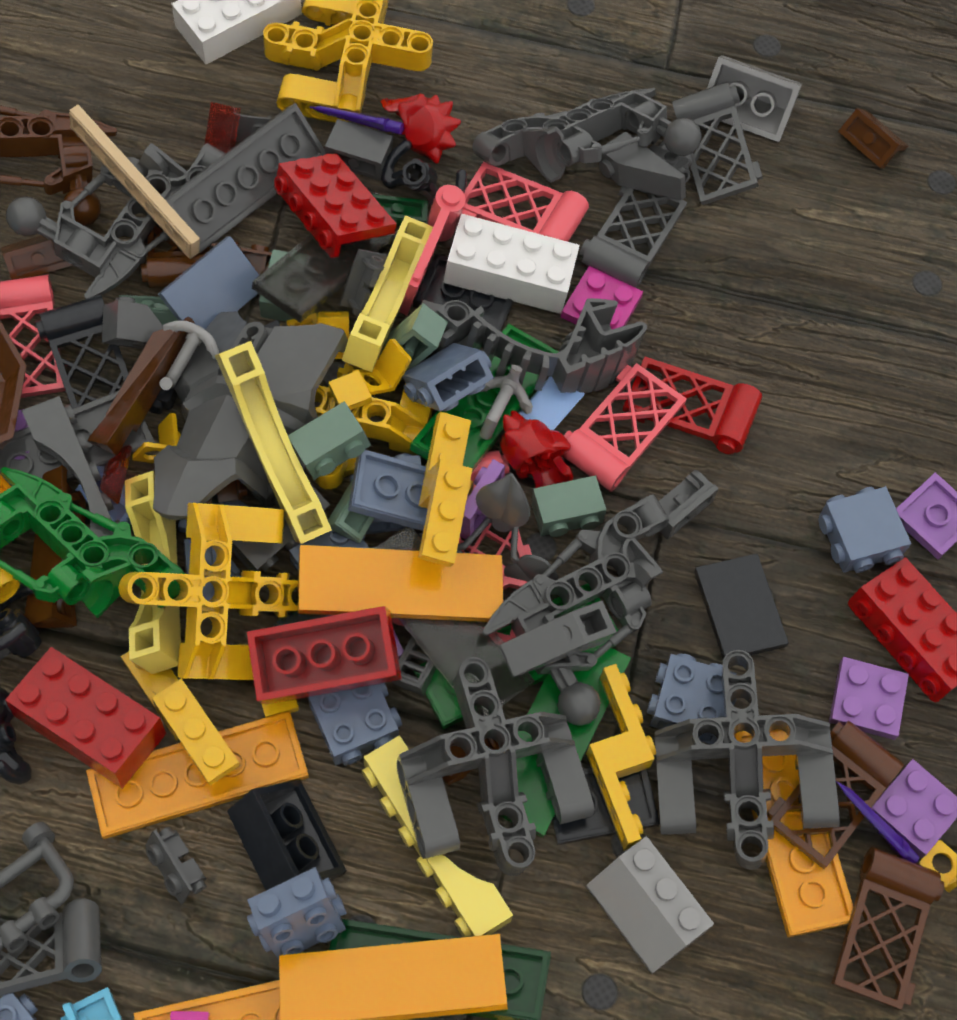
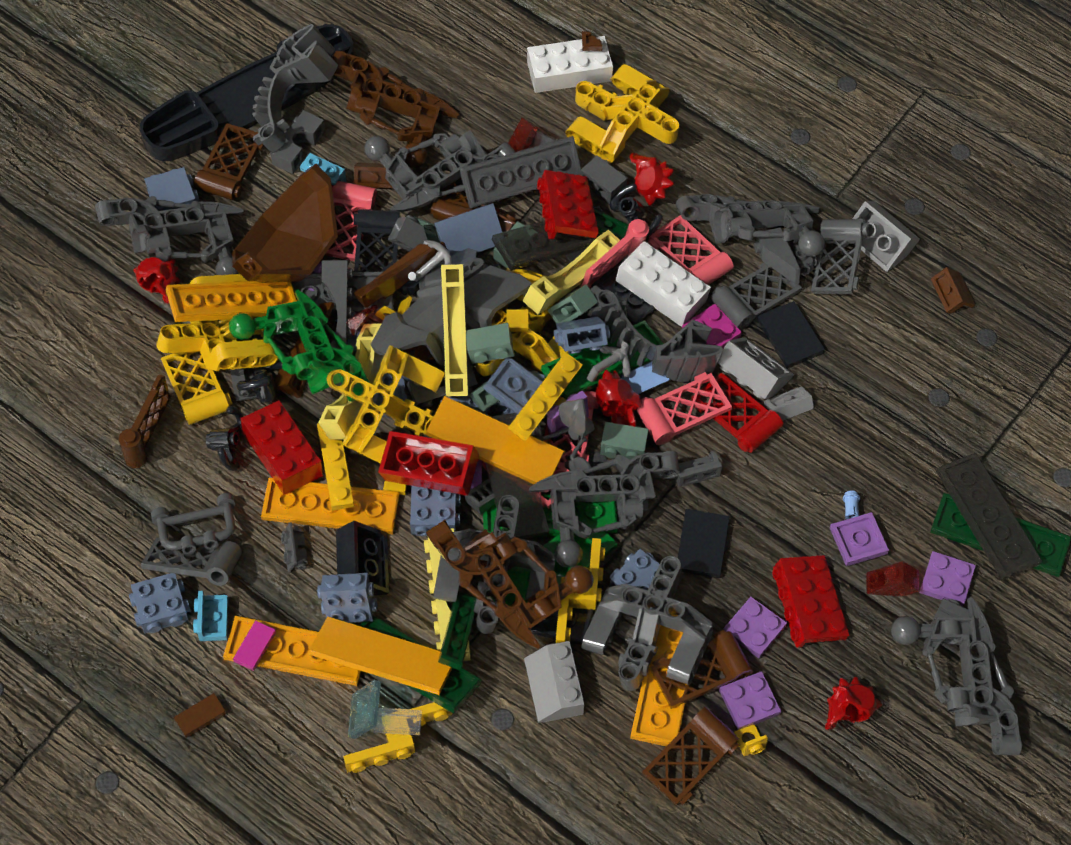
camera: 30 degrees right, 5 degrees down
(134, 182) = (449, 150): tan tile -> none
(362, 279) = (565, 255): dark grey hinge -> none
(380, 123) = (623, 168): dark purple bar -> none
(388, 368) = (547, 319): yellow bracket -> none
(486, 896) = (458, 631): none -> dark green tile
(558, 639) = (569, 507): dark grey slope -> none
(565, 824) = (521, 613): none -> reddish brown piece
(686, 335) = (753, 368): none -> light grey slope
(704, 270) = (790, 334): none -> black tile
(752, 362) = (790, 403): none -> light grey slope
(864, 529) = (803, 527): sand blue brick -> none
(897, 843) = (724, 713): dark purple bar -> none
(902, 473) = (851, 501): none -> light blue pin

